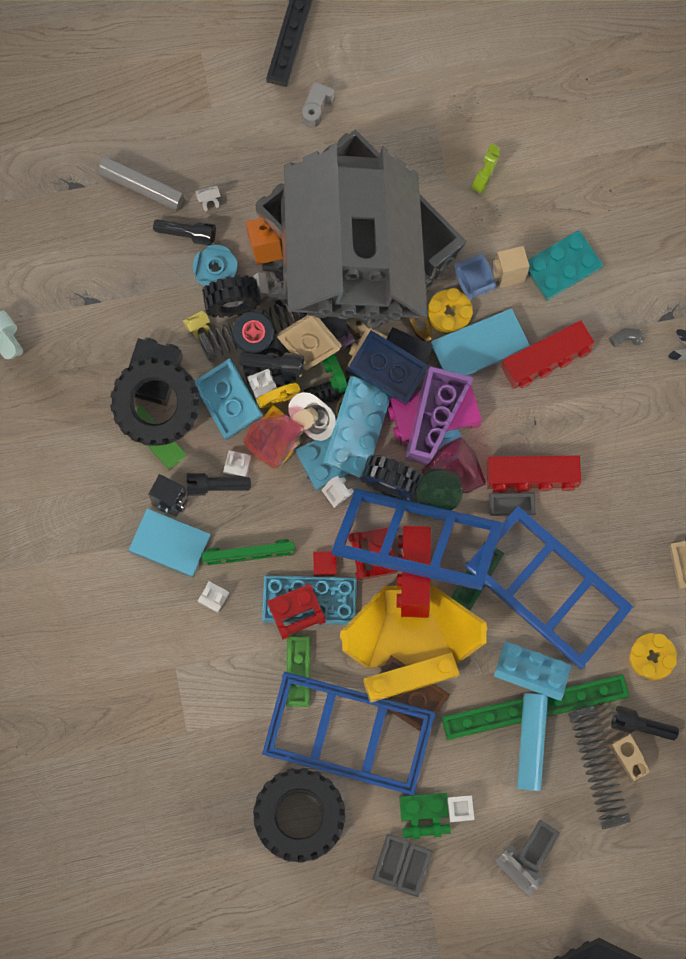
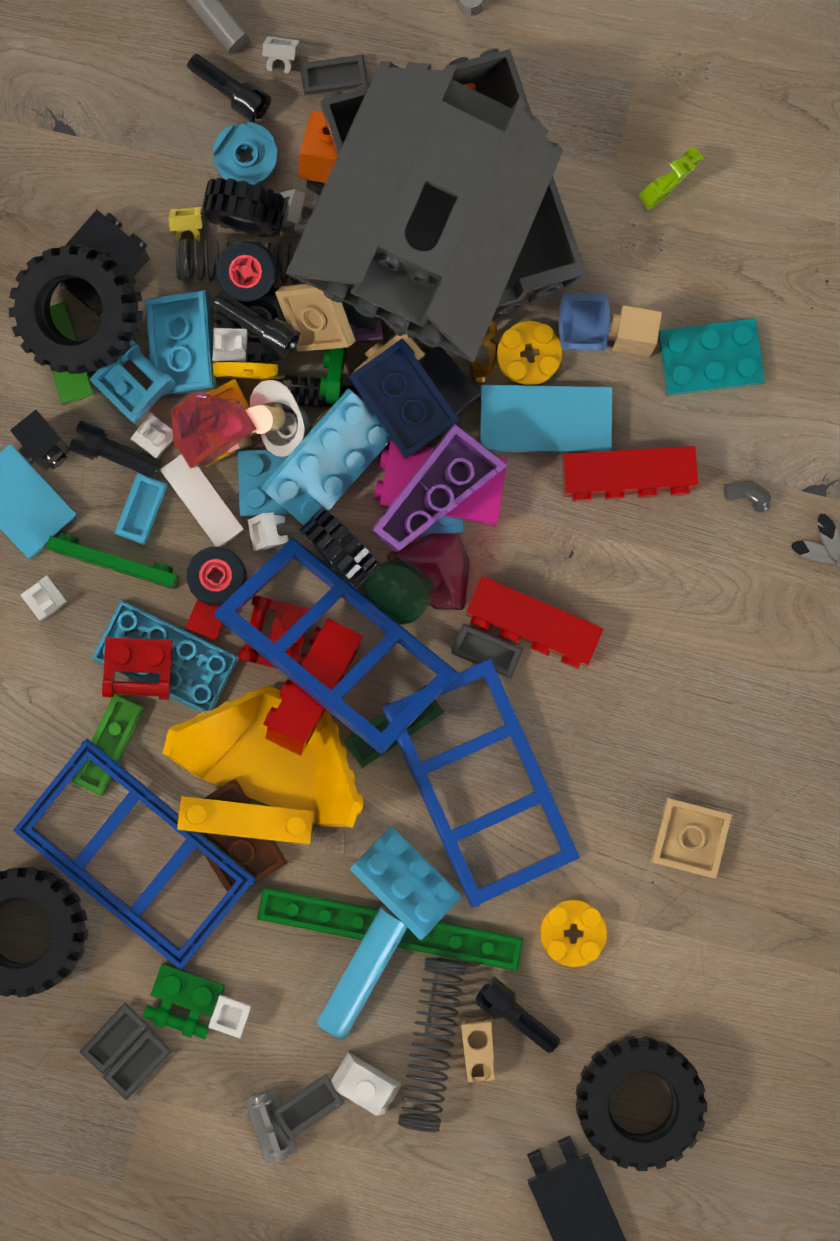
camera: 25 degrees right, 10 degrees up
(206, 441) = (126, 390): none -> medium azure plate
(247, 196) = (333, 74): none -> dark grey tile
(250, 512) = (141, 508): none -> medium azure tile
(286, 490) = (202, 501): none -> white tile
(312, 537) = (218, 586): none -> black wheel
(568, 812) = (365, 1085): none -> white torso

